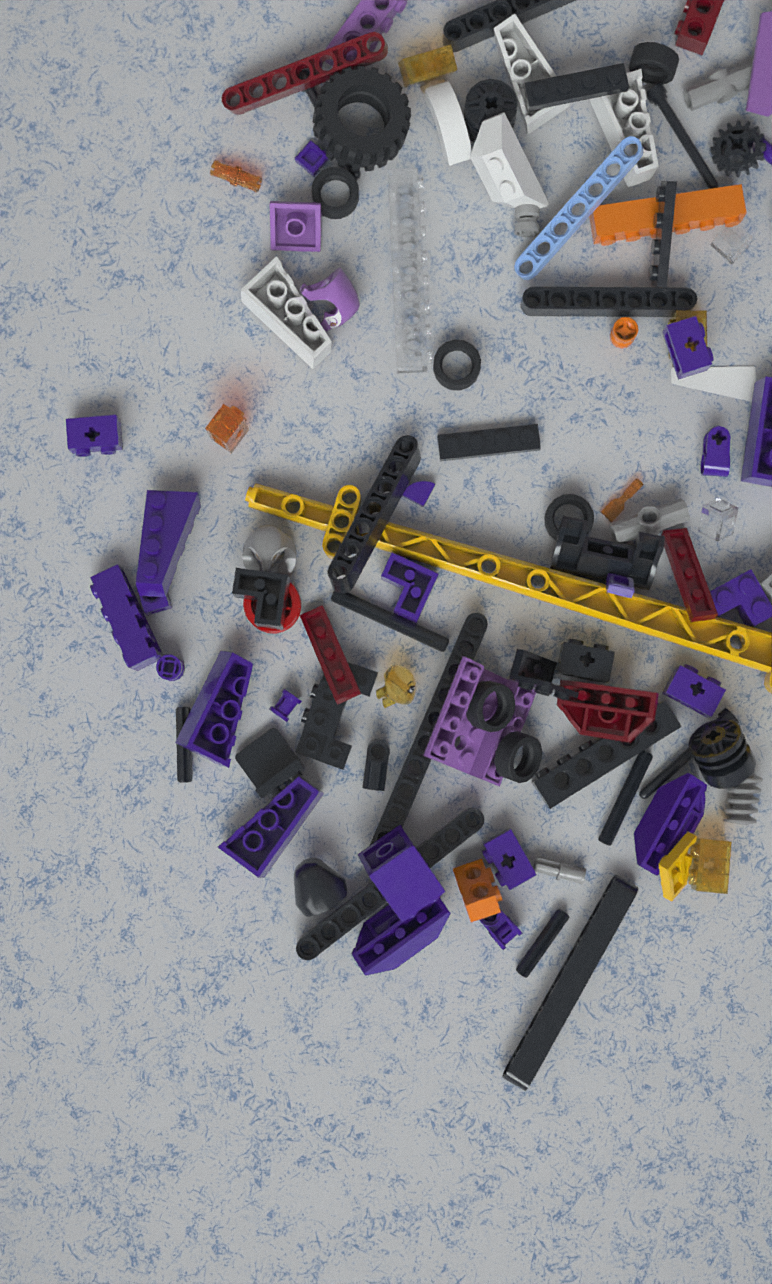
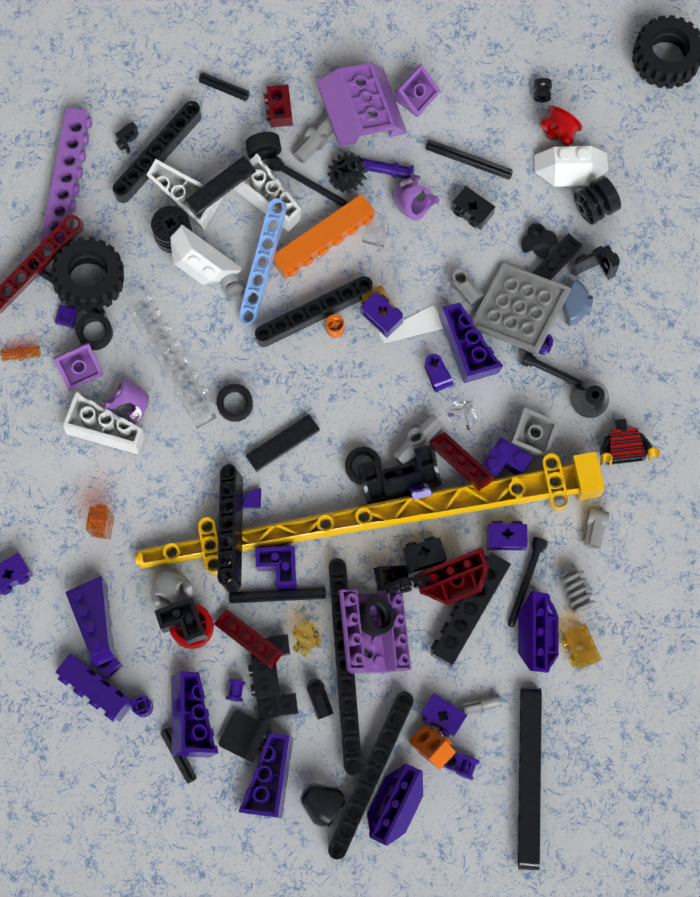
camera: 30 degrees left, 10 degrees down
(401, 873) = (375, 761): dark purple slope -> none
(427, 66) = (114, 219): clear yellow brick -> none
(448, 120) = (147, 247): white arch -> none
(507, 751) = (422, 638): black tyre -> none
(542, 943) = (496, 762): black axle -> none
(616, 506) = (390, 441): clear orange piece -> none
(625, 798) = (500, 632): black axle -> none
(664, 223) = (323, 243): black plate -> none
(675, 867) = (557, 660): yellow wing -> none
(722, 753) = (547, 567): black wheel -> none

